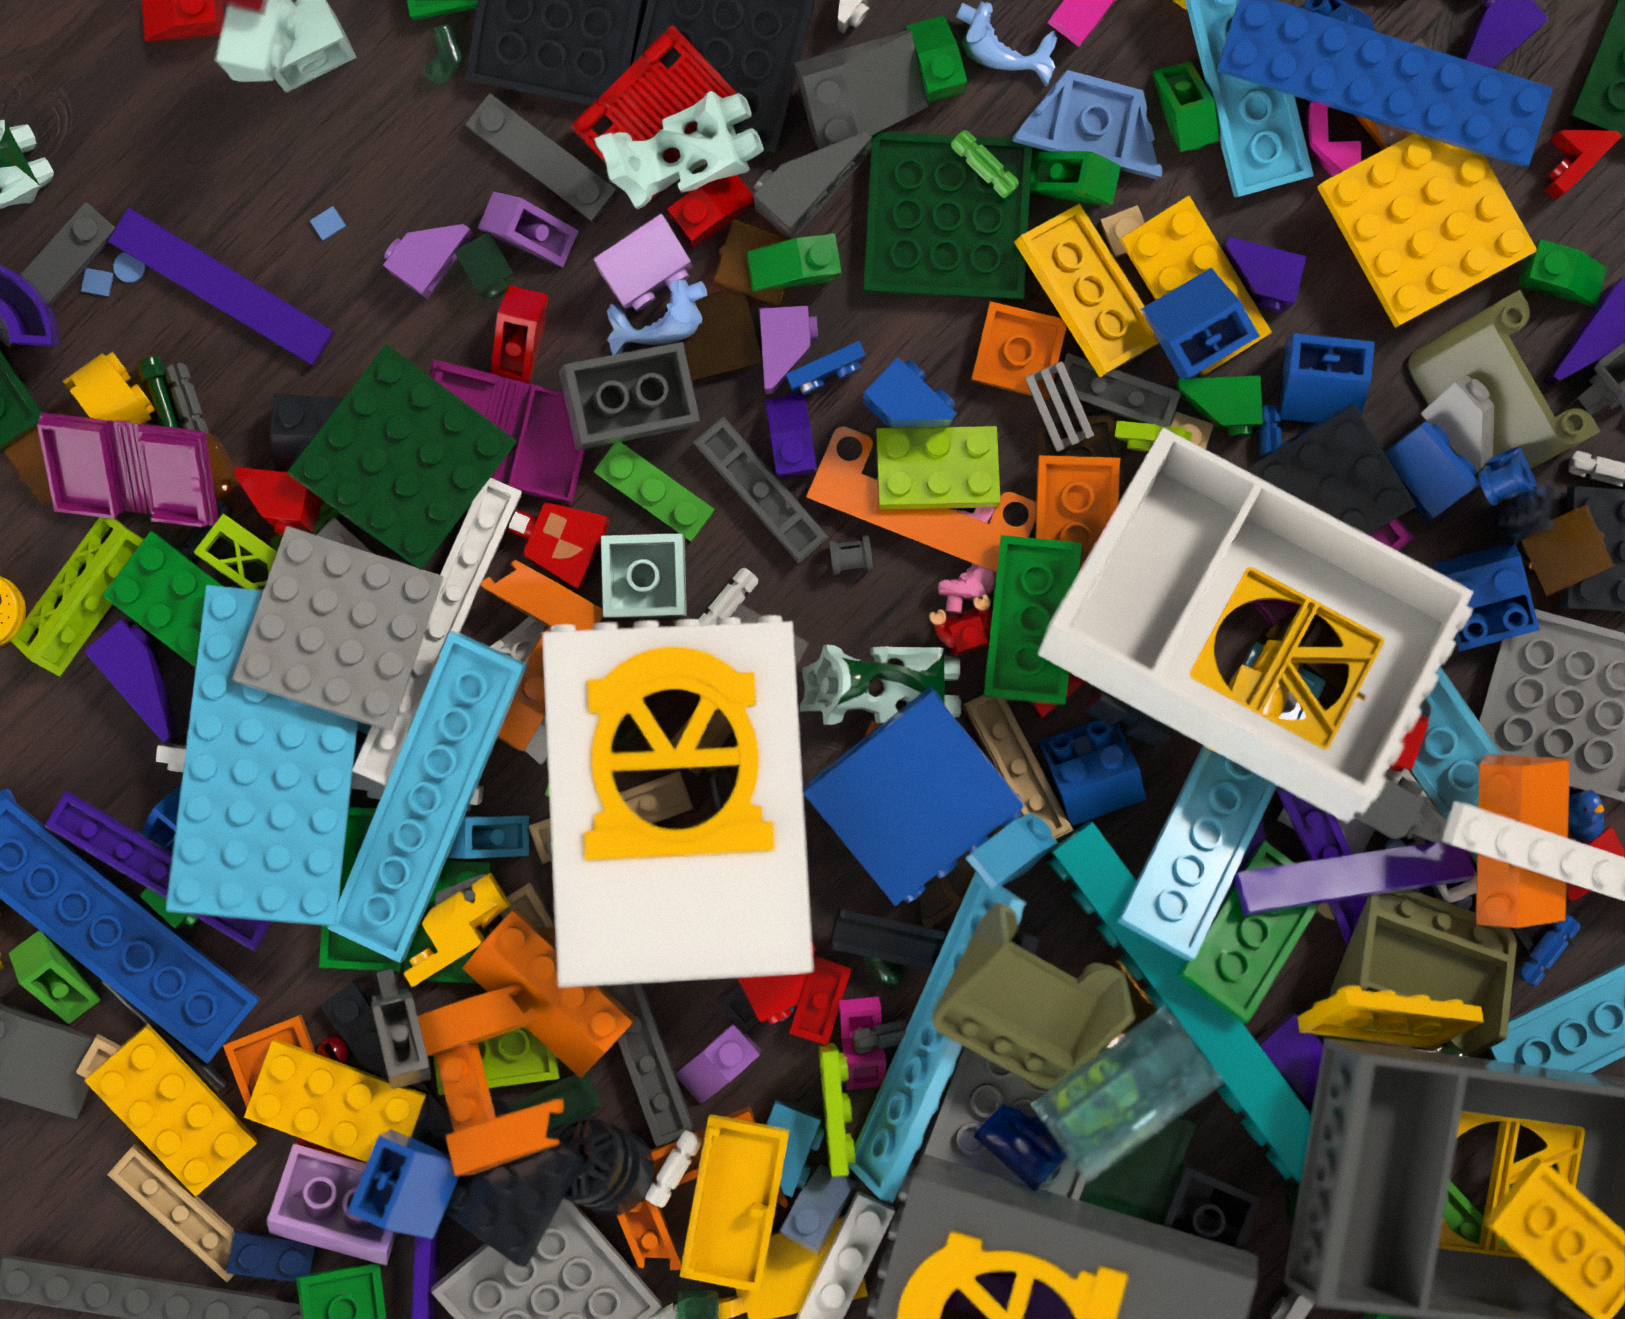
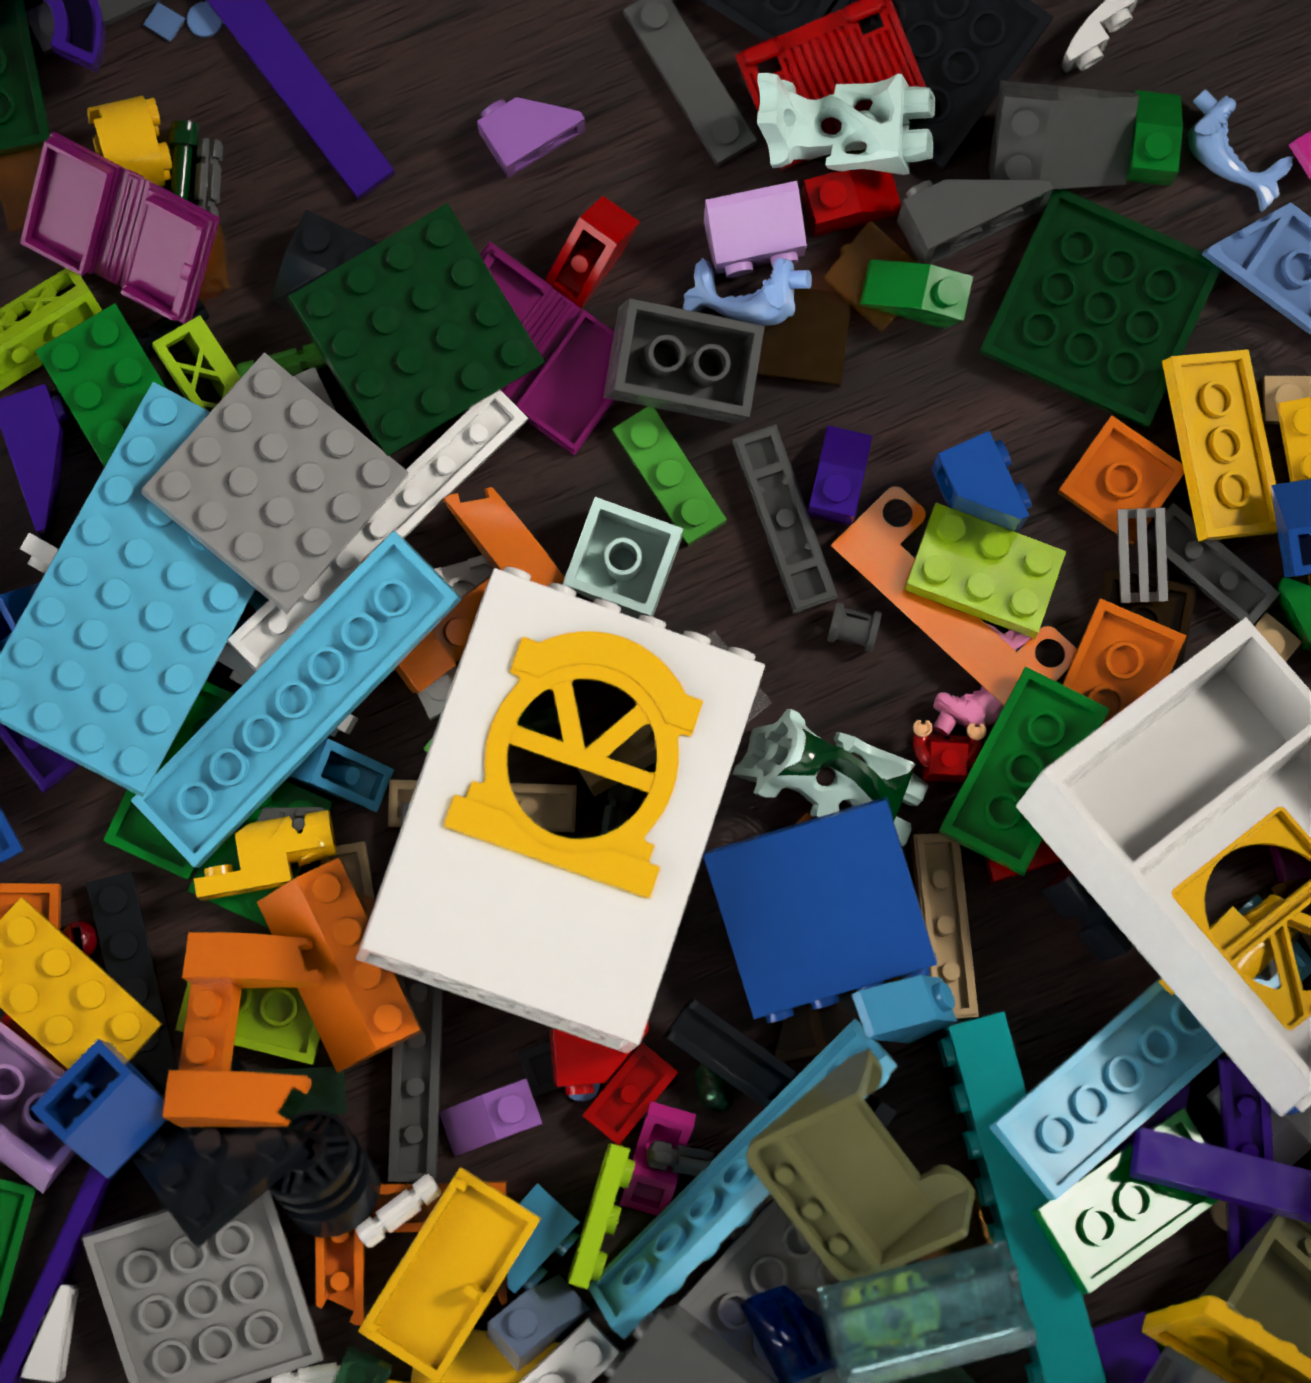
camera: 15 degrees right, 5 degrees down
(280, 499) = (267, 323): red slope -> none
(328, 223) = (434, 56): medium blue window -> none
(399, 1033) = (161, 945): dark grey hinge -> none
(486, 267) = (585, 166): clear green brick -> none
(528, 228) = (646, 144): medium lavender slope -> none
(562, 540) = (549, 487): red torso -> none
(730, 597) = (710, 619): white axle -> none
(785, 342) = (873, 372): medium lavender slope -> none
(841, 362) = (926, 416): blue piece -> none
(984, 163) = (1163, 266): bright green axle -> none
(1074, 176) = (1254, 318): green slope -> none
(1092, 770) = (1025, 962): blue slope -> none
(1143, 435) = (1217, 619): lime plate -> none

